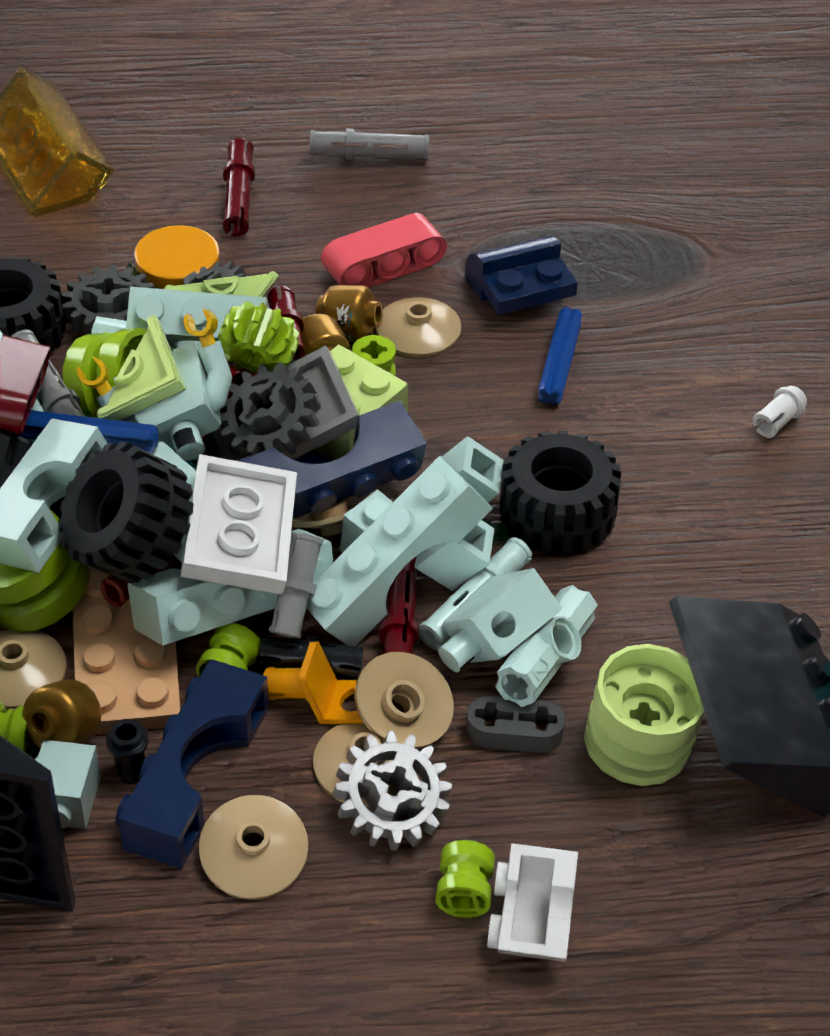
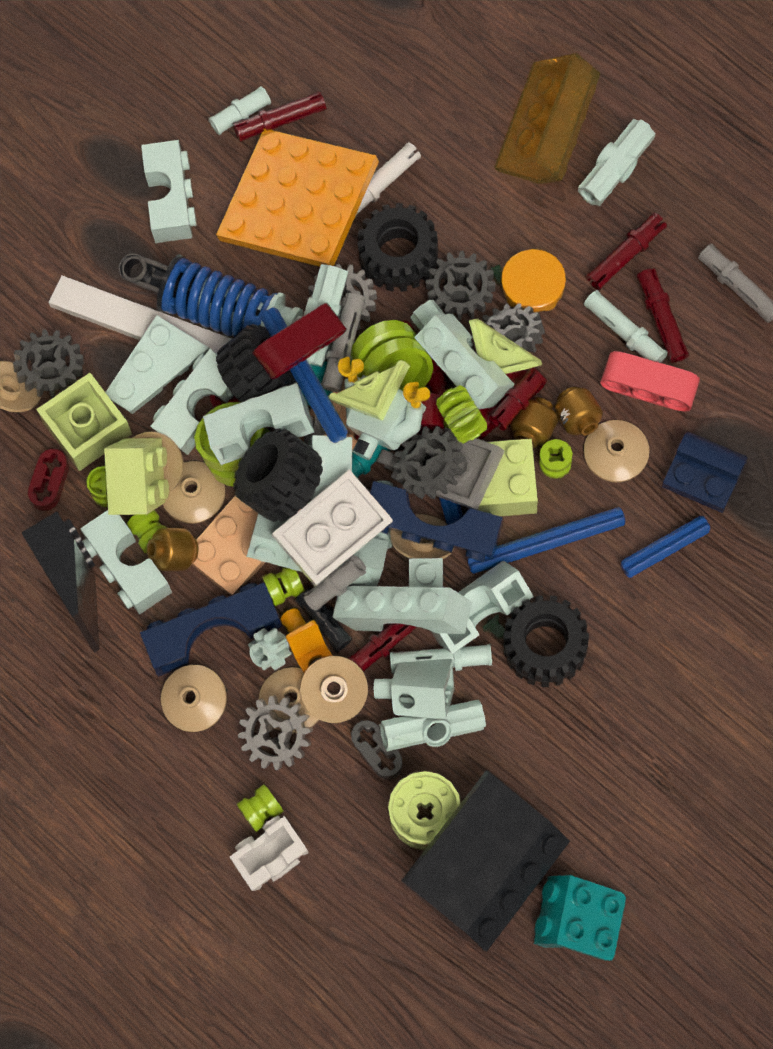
camera: 55 degrees right, 25 degrees up
(127, 744) = (188, 589): black pin -> none
(148, 136) = (616, 162): none -> light aqua piece
(280, 735) = (269, 649): none -> light aqua gear
(291, 191) = (658, 303): none -> dark red pin
(310, 234) = (636, 337): none -> light aqua pin
(455, 415) = (551, 539): none -> blue axle
(787, 405) = (736, 699): white pin -> none

